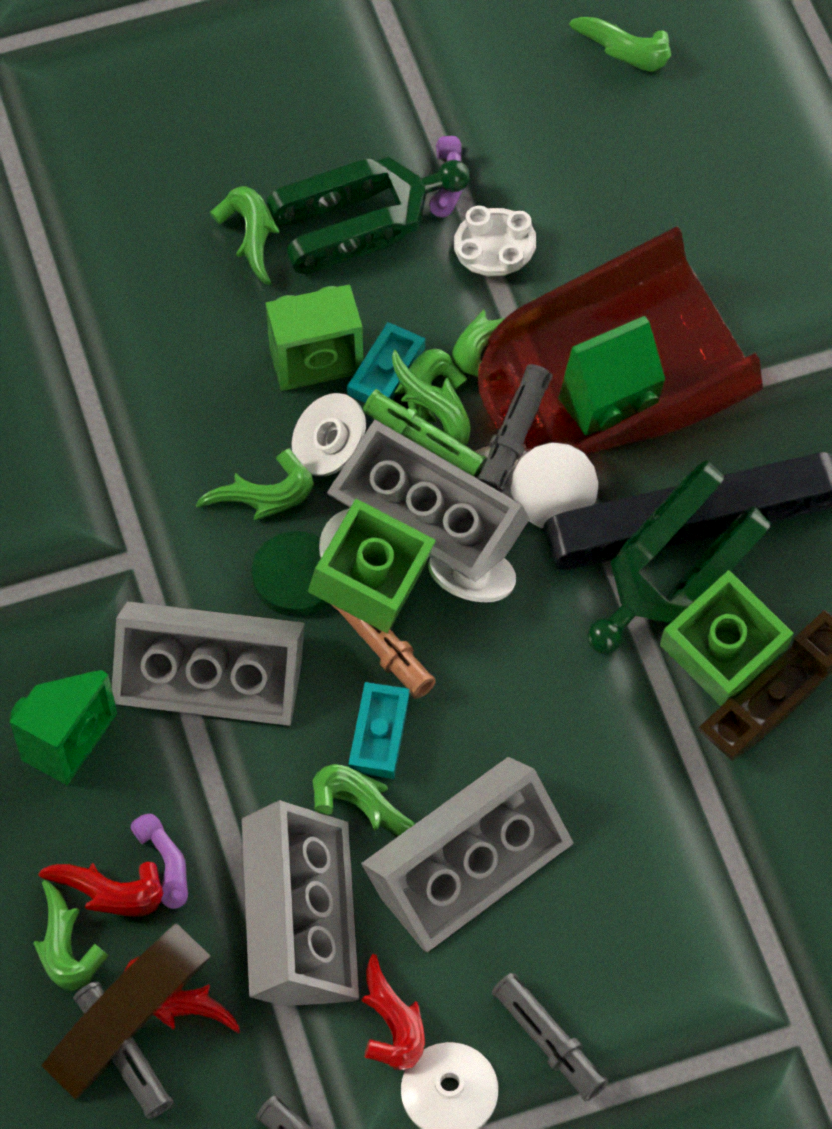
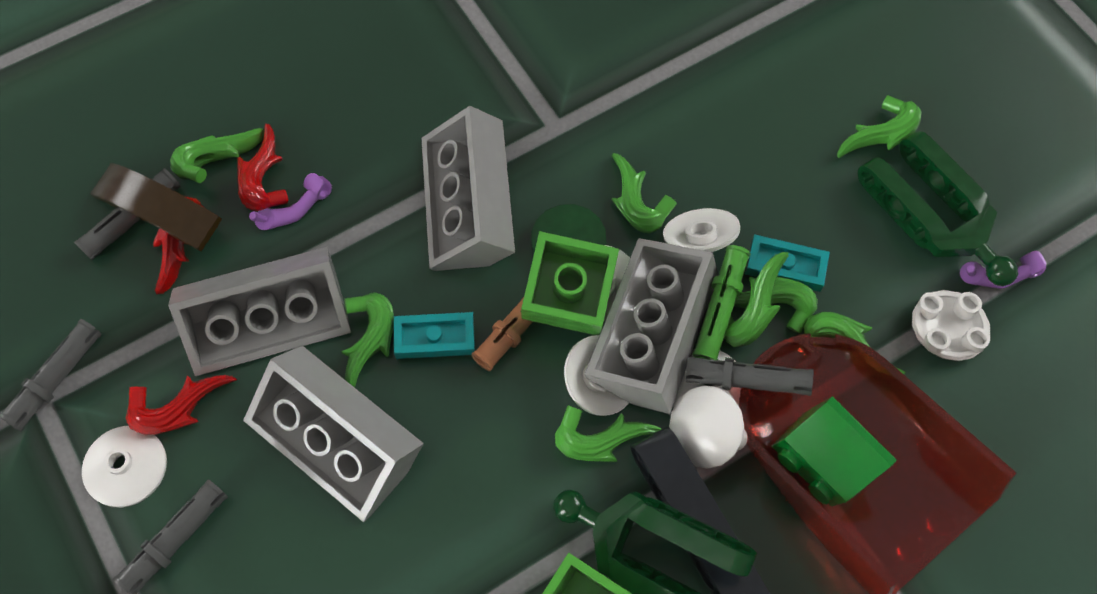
camera: 75 degrees right, 5 degrees up
(63, 722) = (376, 99): green slope -> none
(315, 336) = (788, 192): bright green brick -> none
(545, 594) = (600, 445): none -> bright green piece

